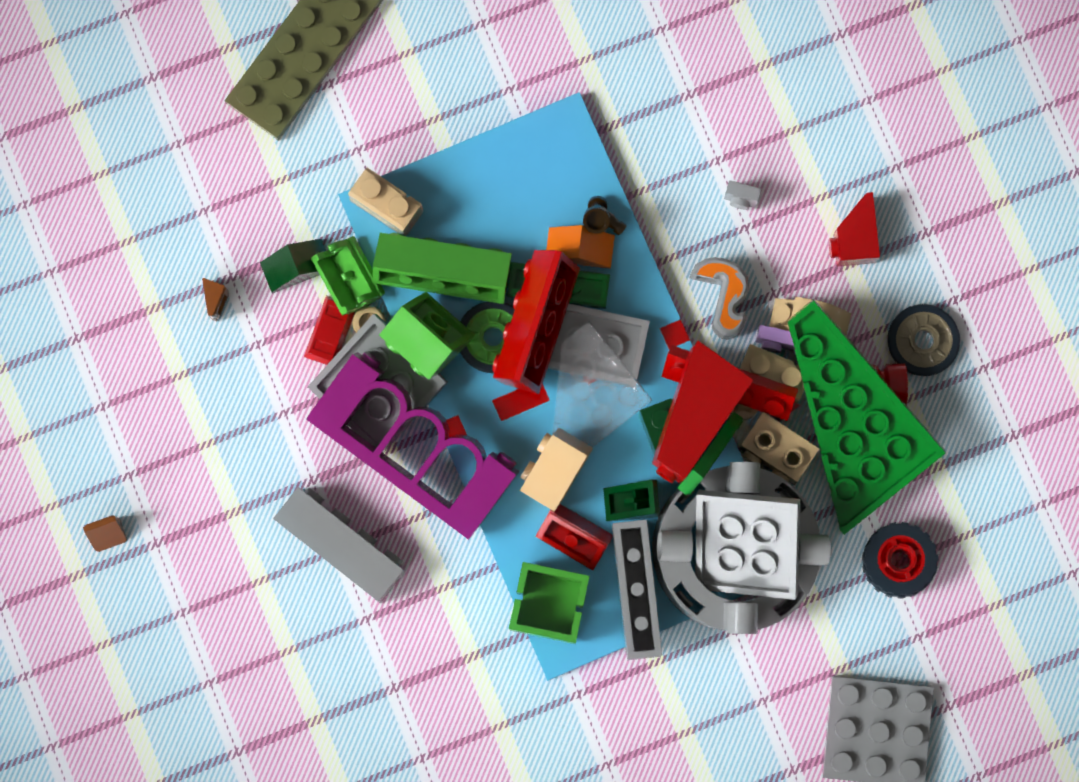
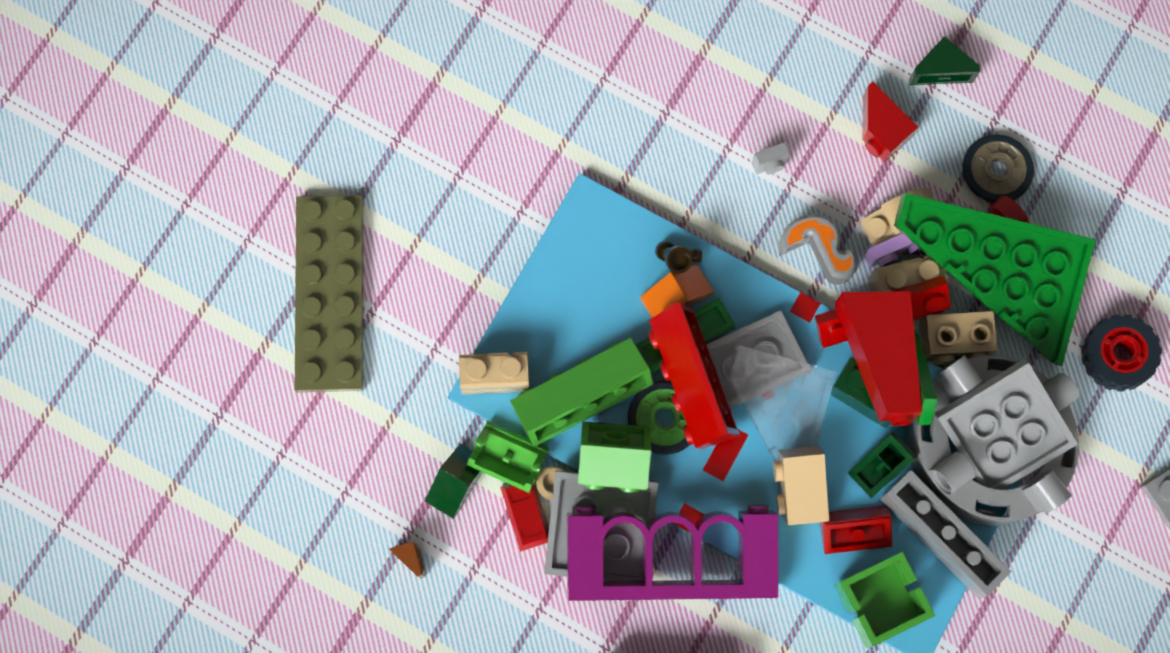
camera: 40 degrees left, 5 degrees down
(946, 222) = (945, 66): none -> dark green slope

